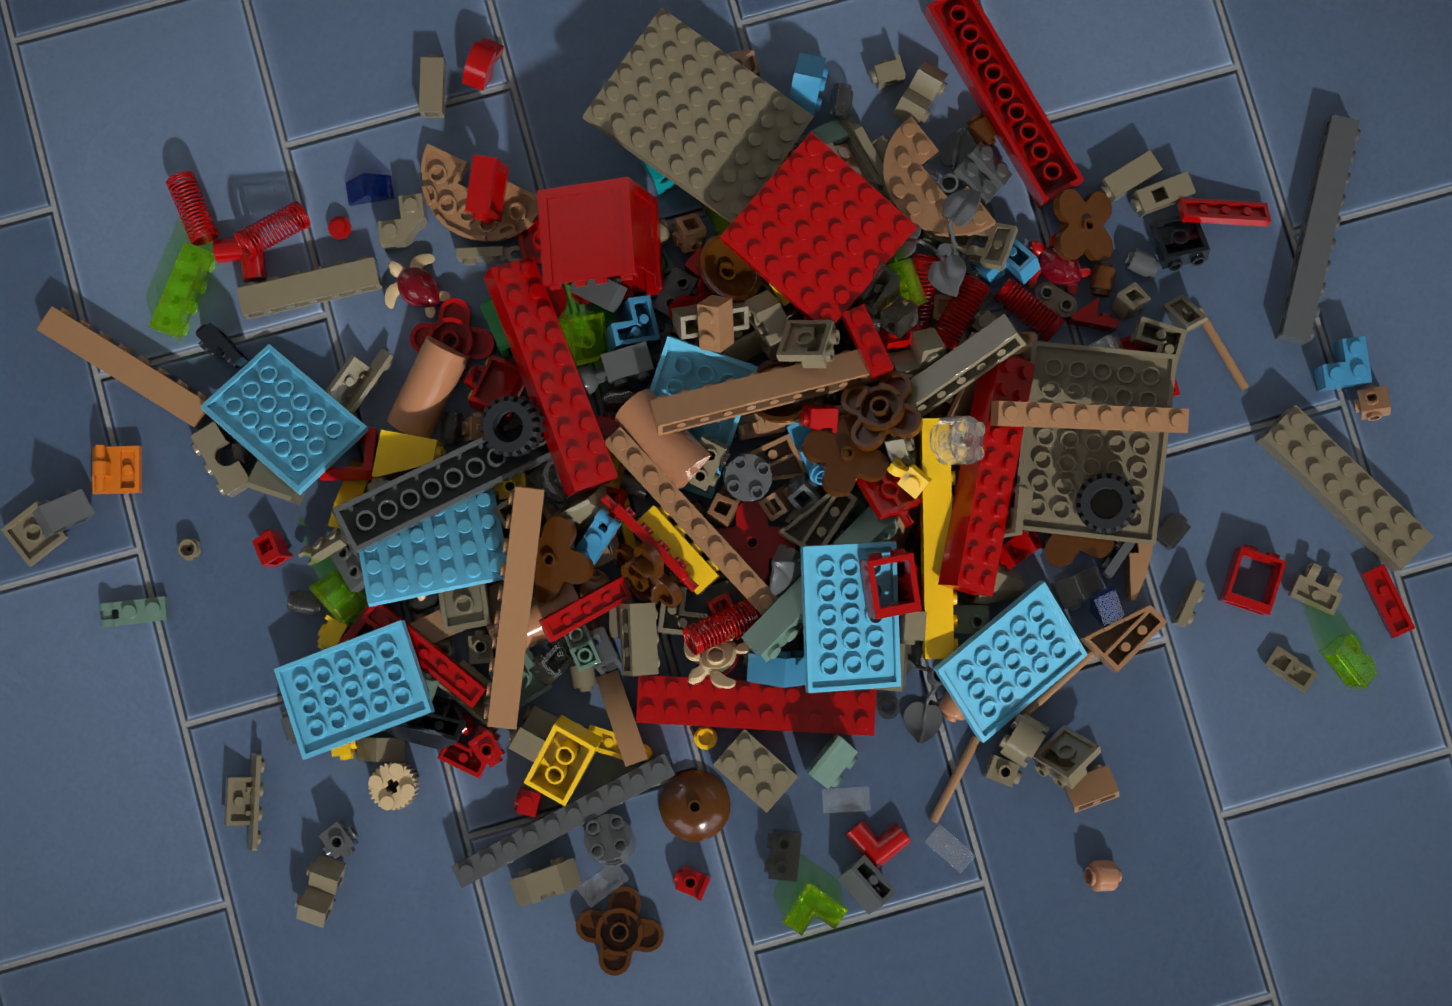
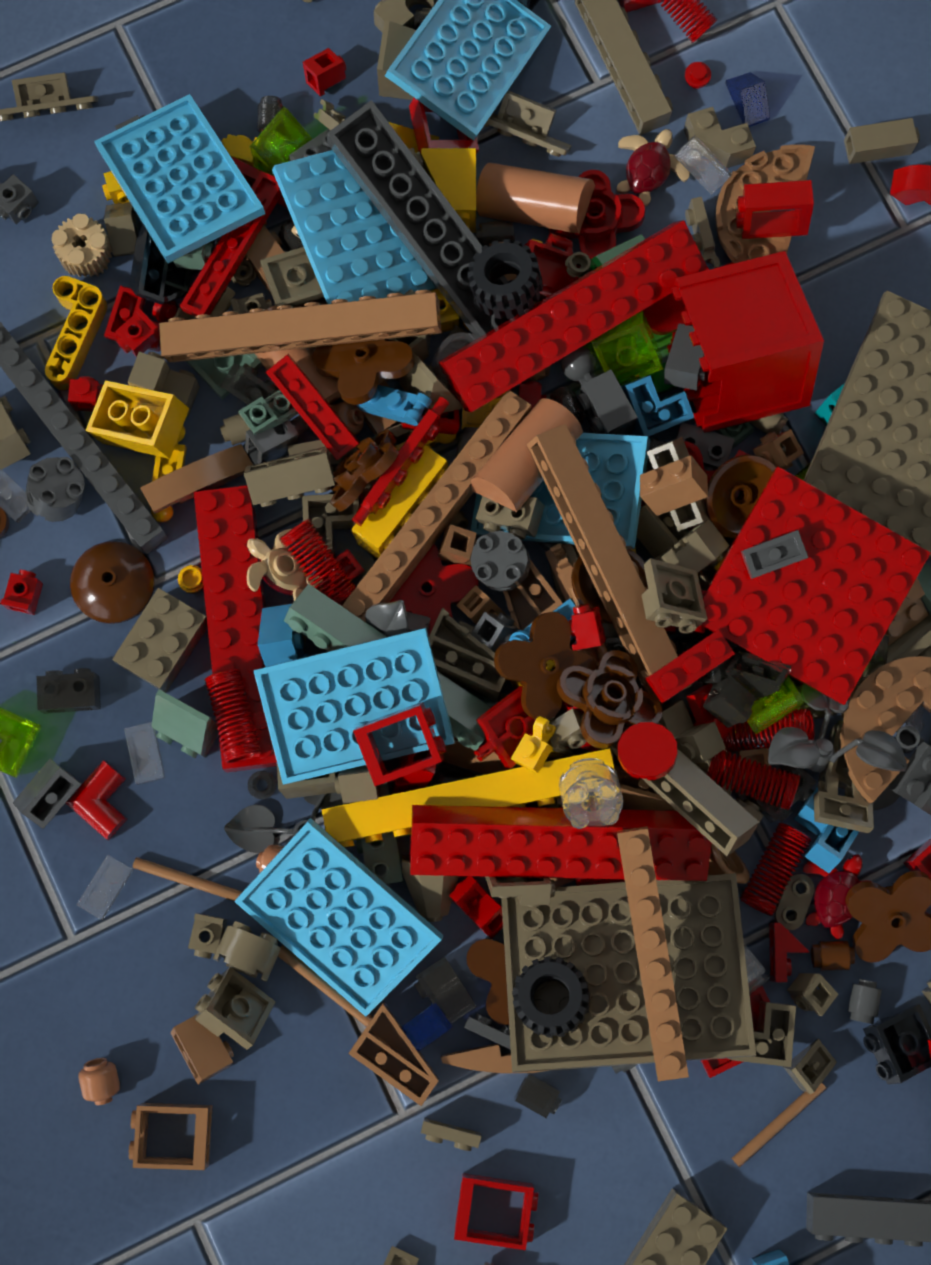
camera: 80 degrees right, 5 degrees down
(426, 240) = (703, 164): none -> clear plate
(473, 808) = (70, 335): none -> yellow beam
(504, 363) = (581, 259): none -> dark tan plate
(792, 255) = (774, 554): none -> dark grey plate
(805, 717) = (239, 725): none -> red piece
(932, 389) = (647, 751): none -> red tile
(1174, 830) = (202, 1138): none -> medium nougat window

